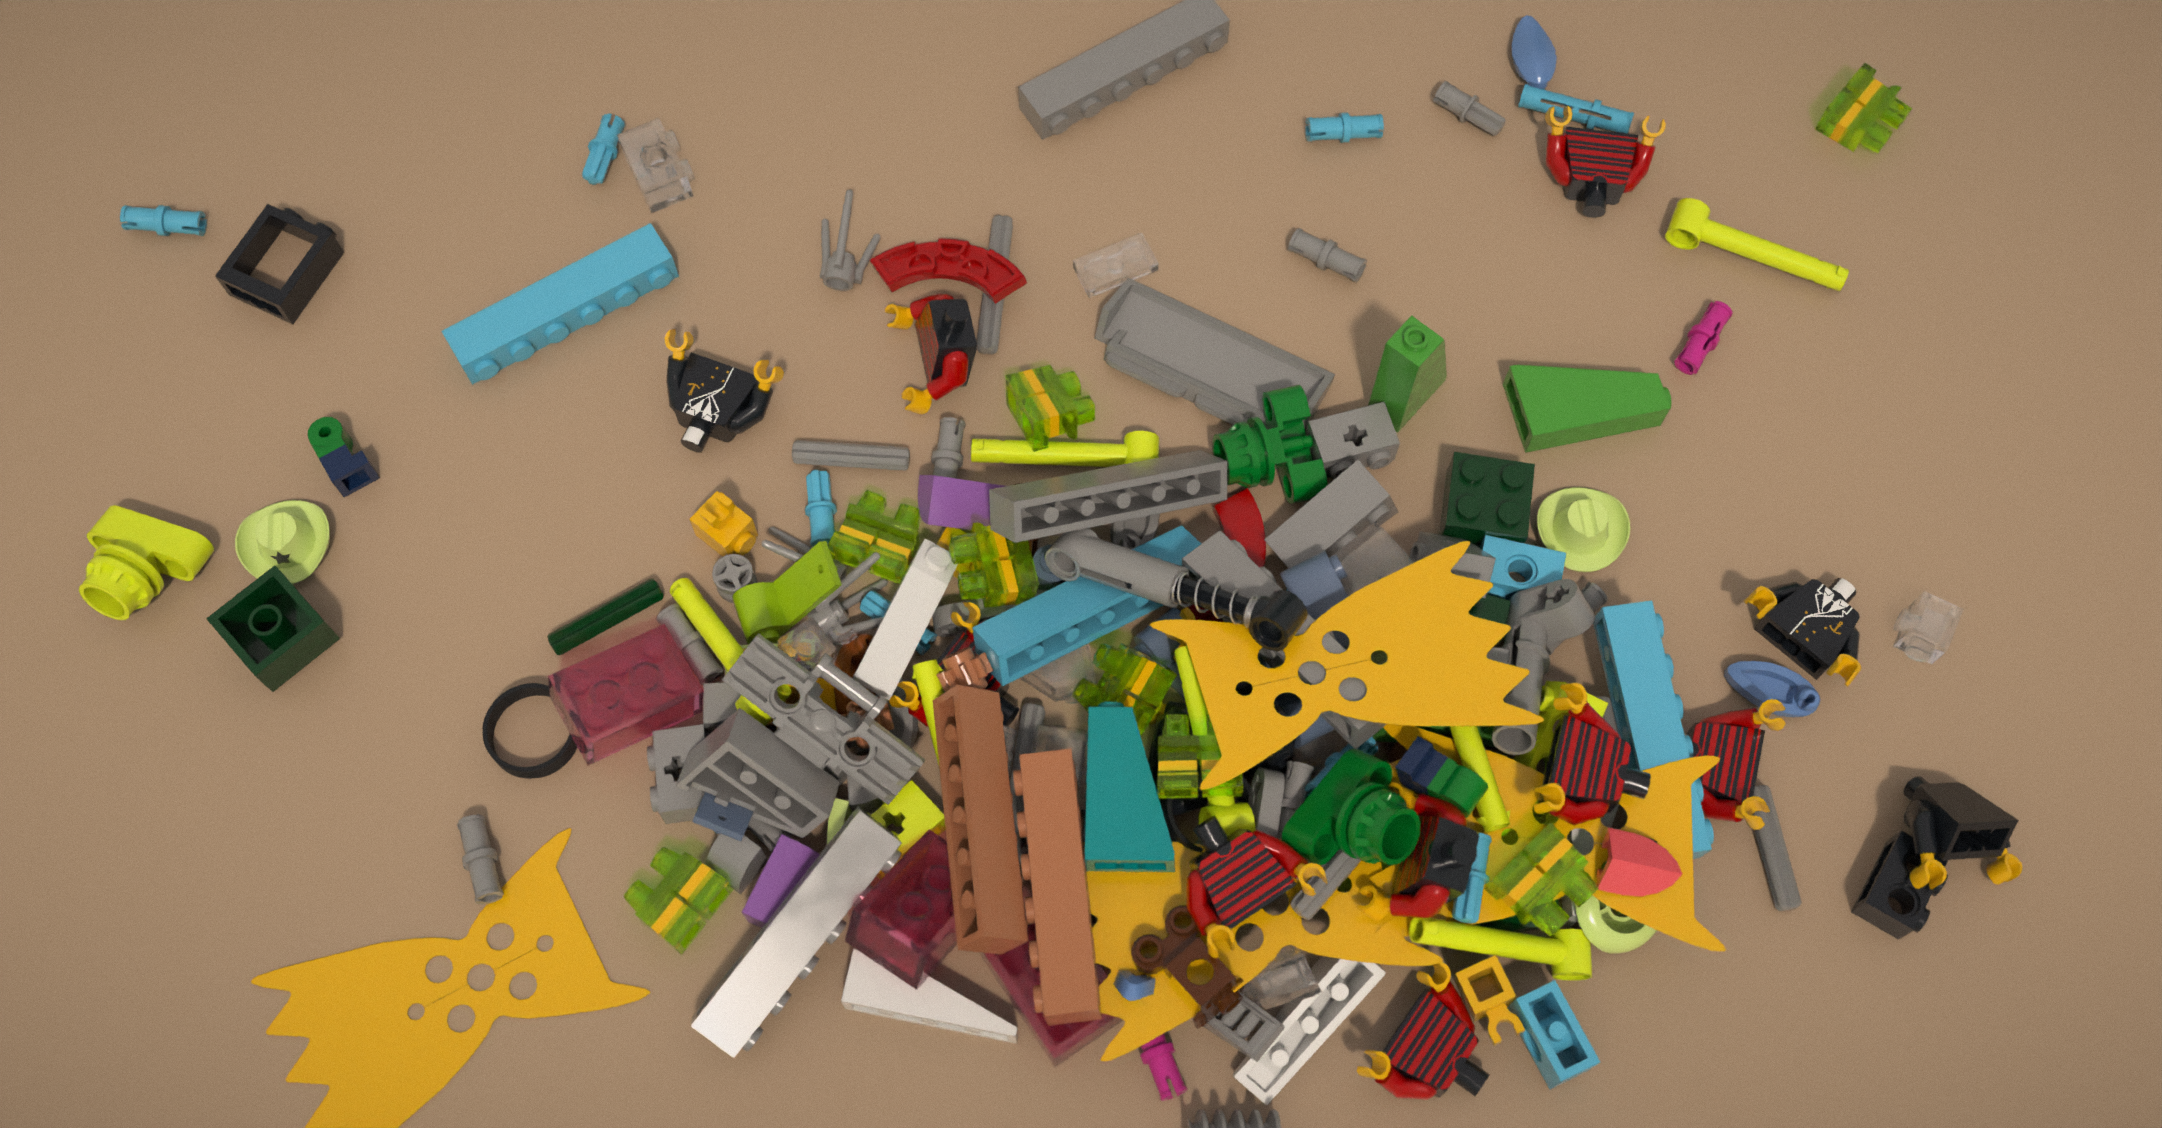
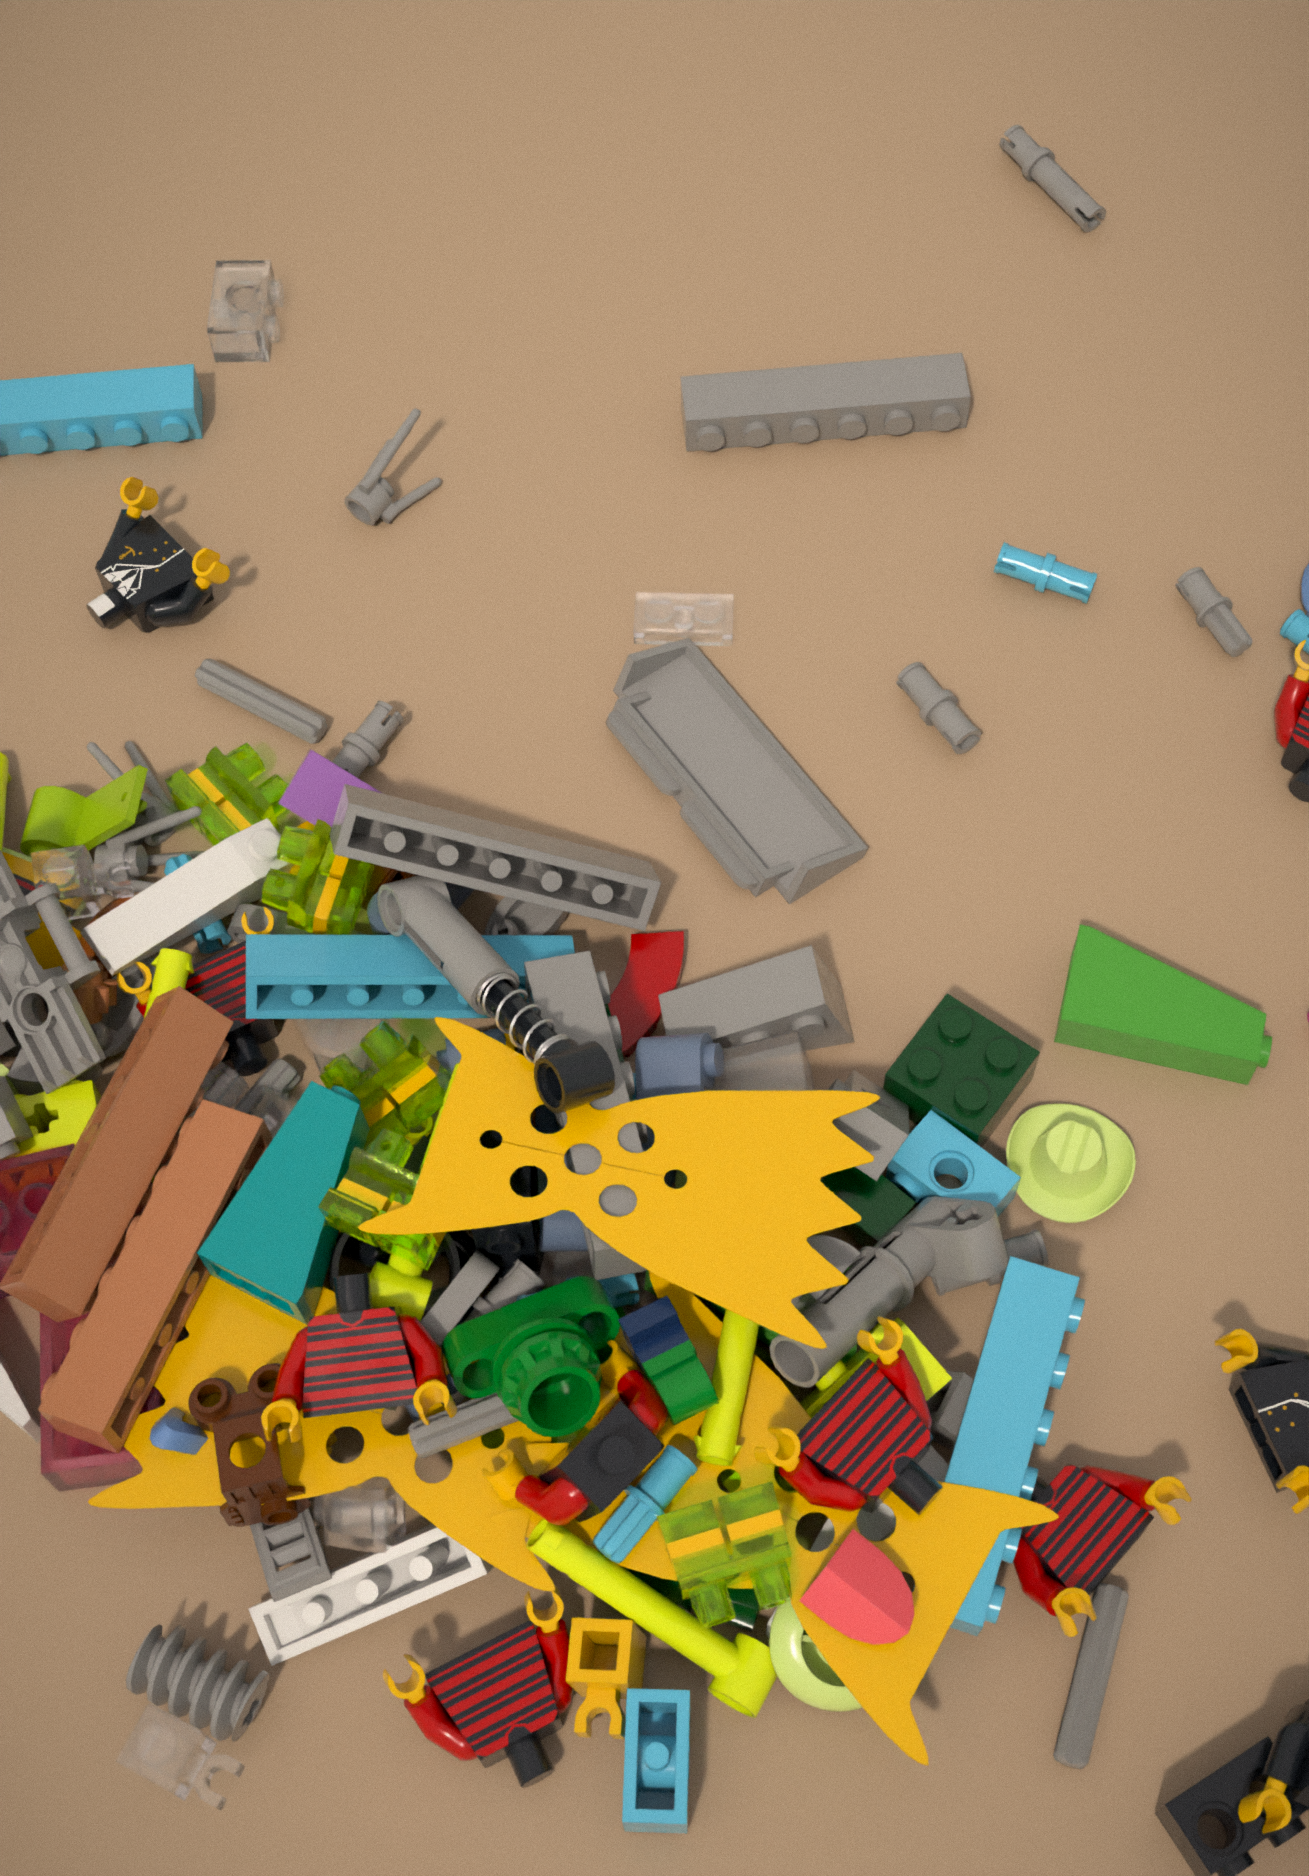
camera: 30 degrees right, 5 degrees down
(602, 149) = (197, 275): medium azure axle -> none
(724, 526) = (73, 715): yellow brick -> none
(731, 569) = (46, 763): light grey wheel -> none
(820, 507) = (192, 741): medium azure axle -> none
(945, 345) = (427, 625): torso -> none
(949, 260) = (493, 534): red tile -> none
(965, 669) = (213, 980): nougat gear -> none
(990, 312) = (532, 584): light grey axle -> none
(1045, 406) = (504, 734): clear neon green hips -> none
(1136, 447) = (581, 826): neon yellow piece -> none
(1159, 1057) = (178, 1552): dark pink pin -> none
(1256, 451) = (753, 900): green beam -> none
(1352, 436) = (861, 918): light grey brick -> none
(1409, 371) = (938, 874): bright green slope -> none
(1766, 681) = (1210, 1473): medium blue arm -> none

